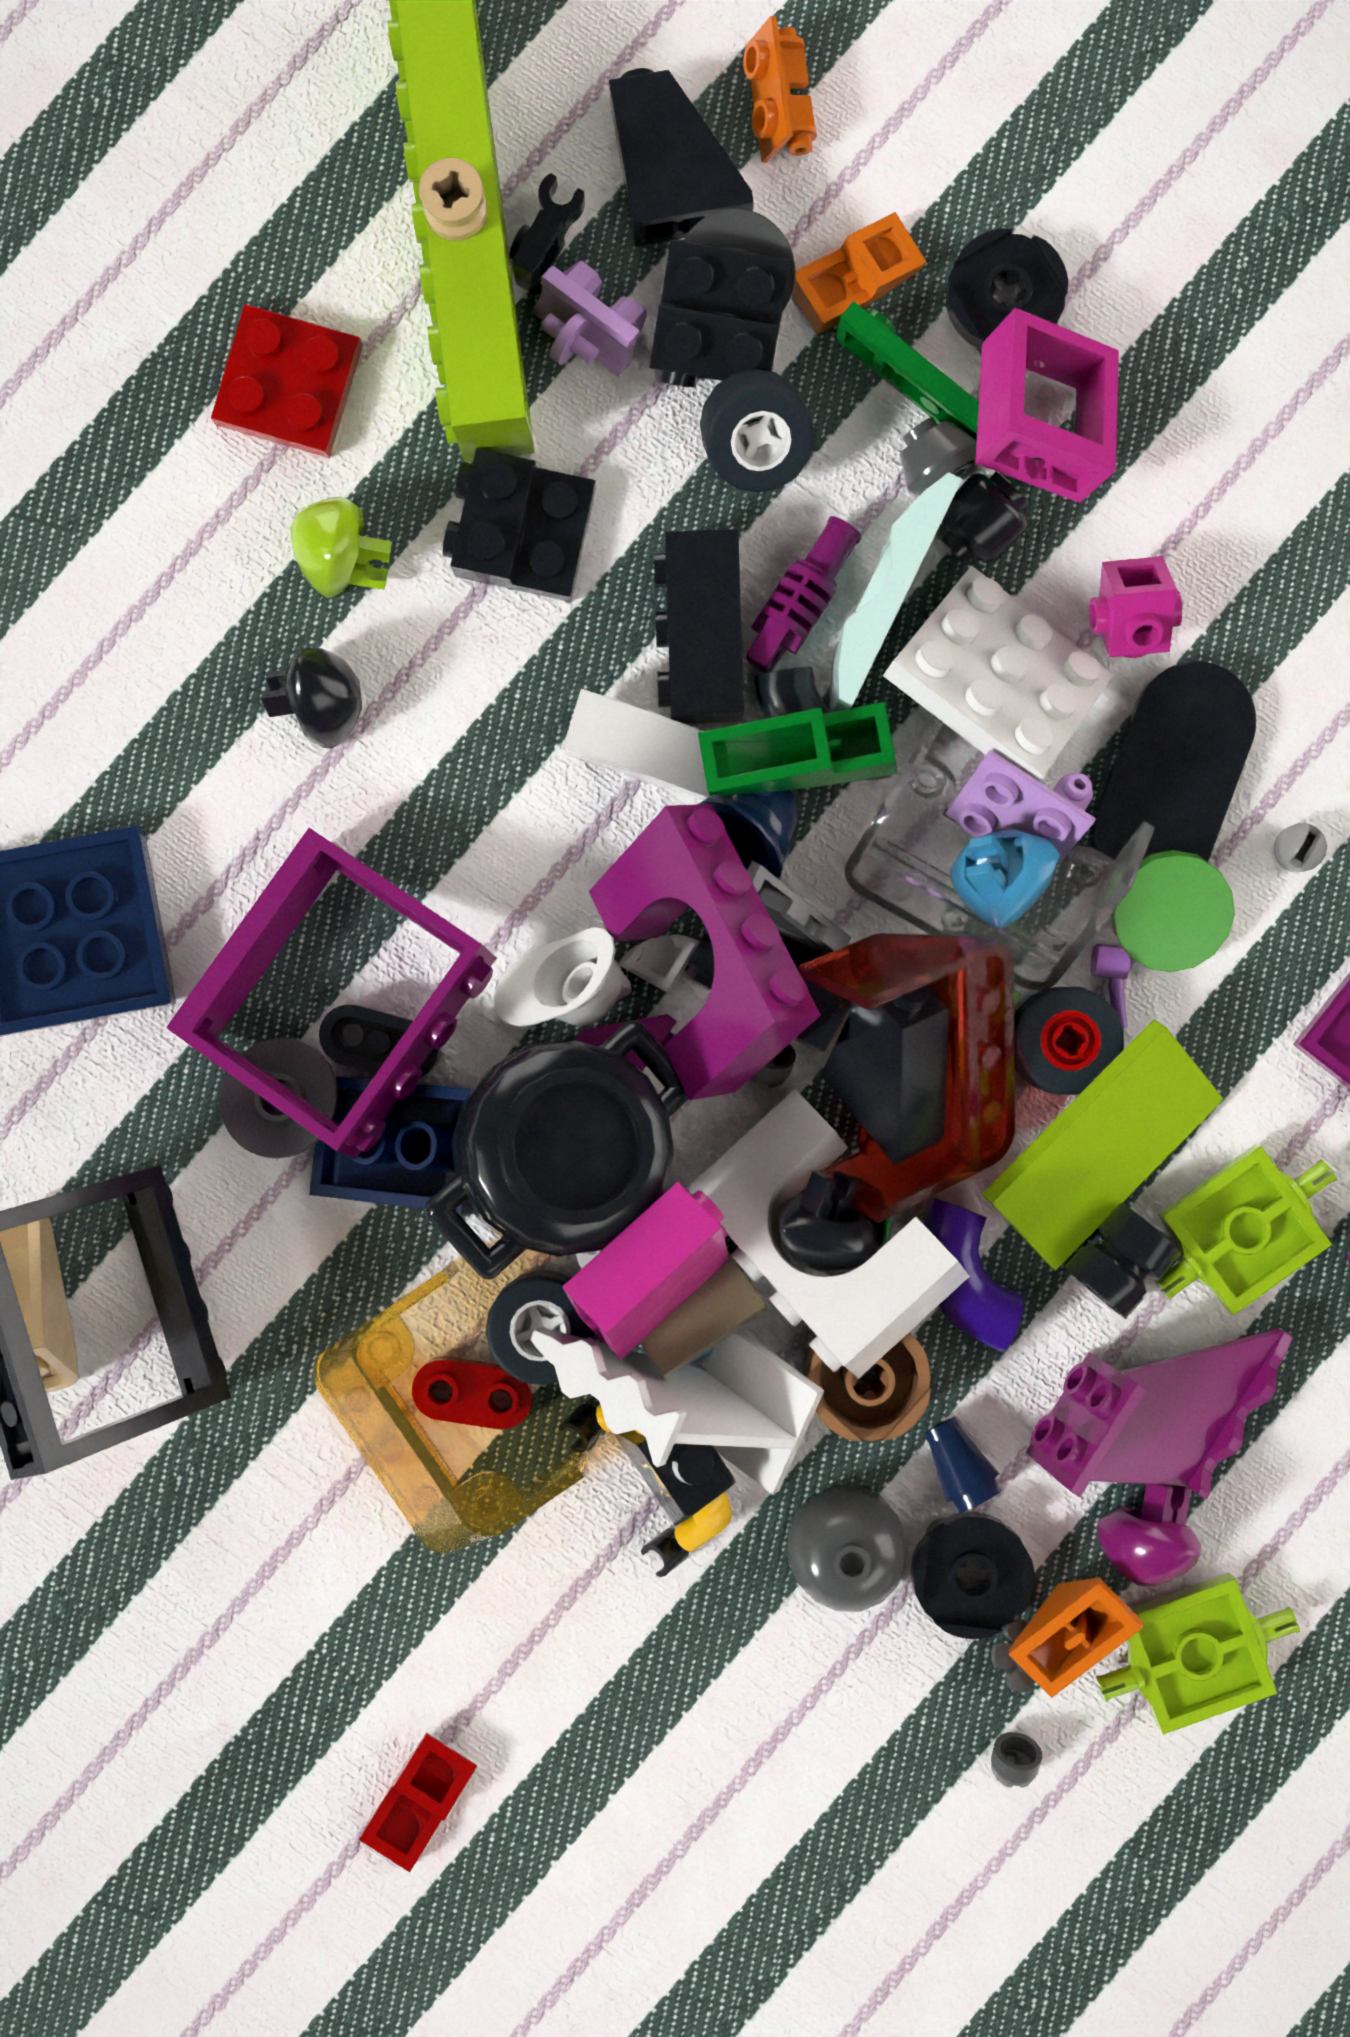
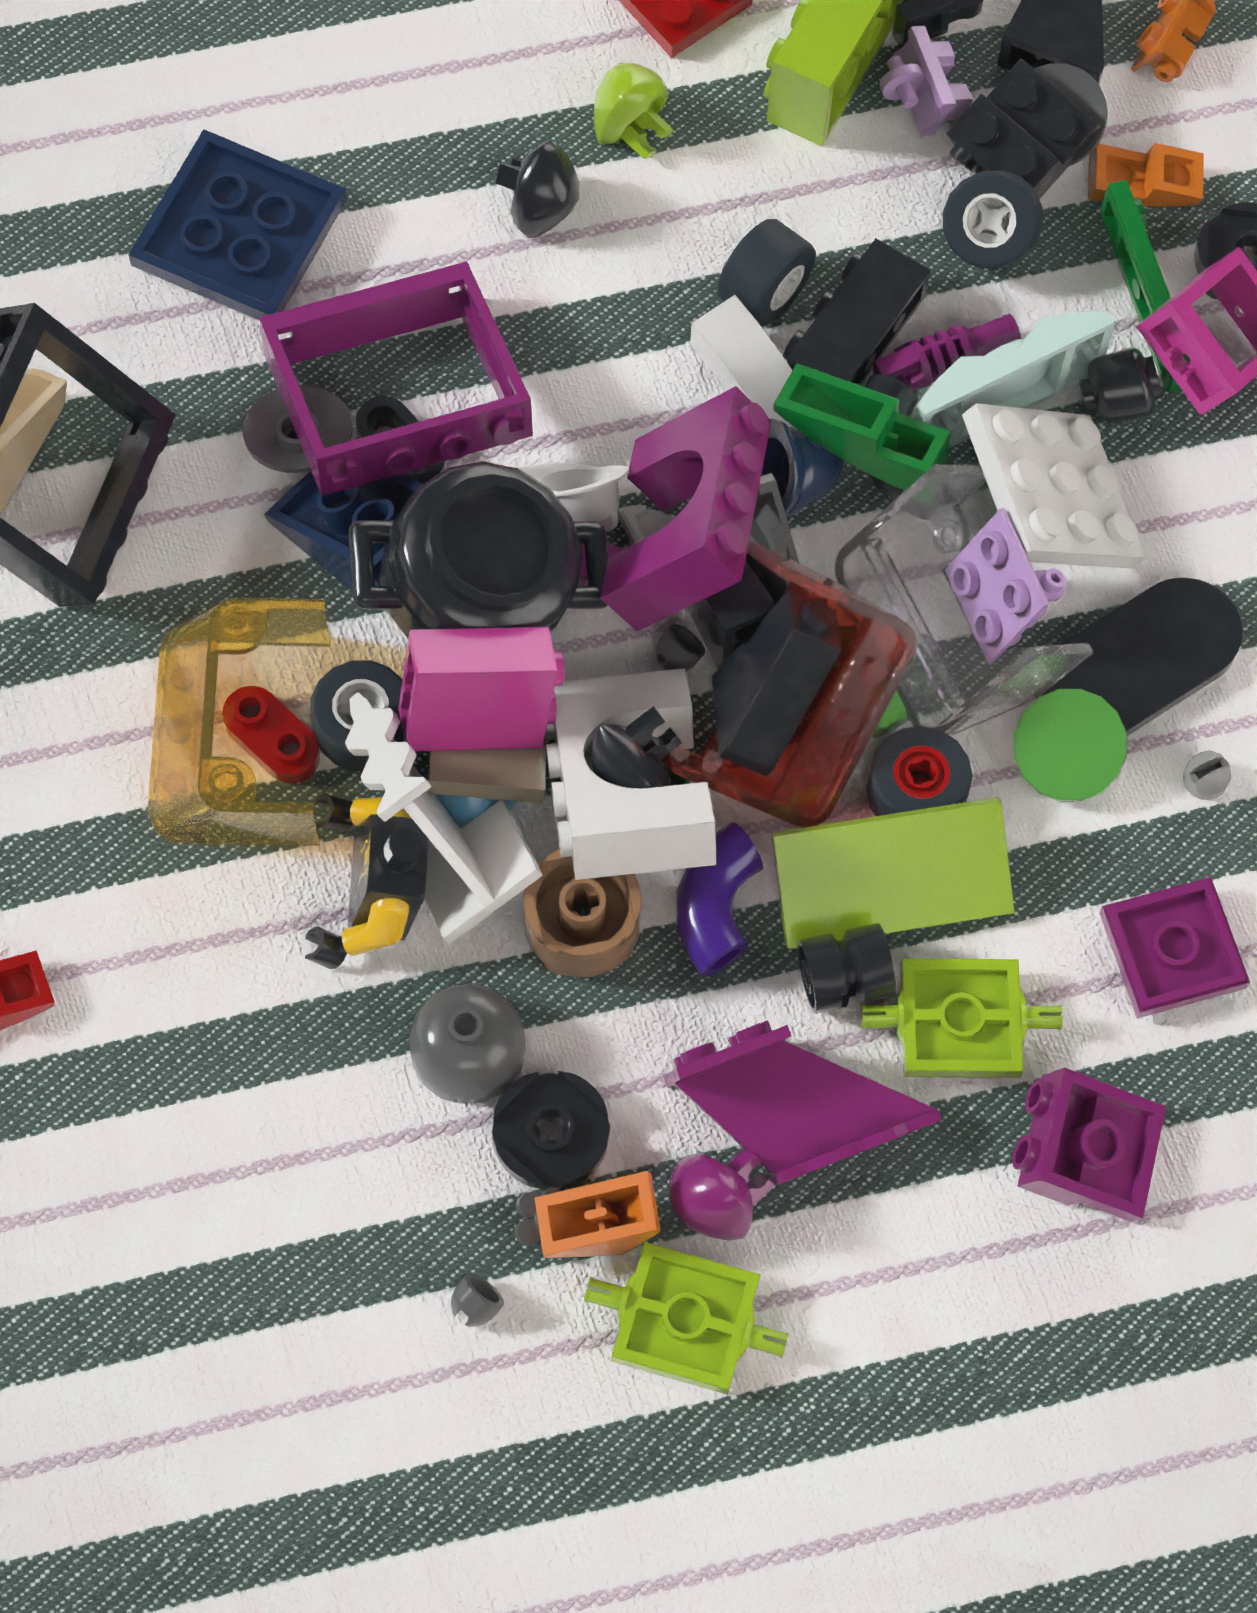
camera: 30 degrees right, 20 degrees down
(519, 525) = (773, 174): black plate -> none
(588, 638) = (767, 270): none -> black wheel
(934, 452) = (1128, 314): dark grey cone -> none
(961, 1466) = (604, 1042): dark blue cone -> none
(1004, 874) = (953, 612): dark azure piece -> none
(1115, 964) = (998, 758): medium lavender hand -> none
(1136, 607) = (1192, 514): dark pink brick -> none

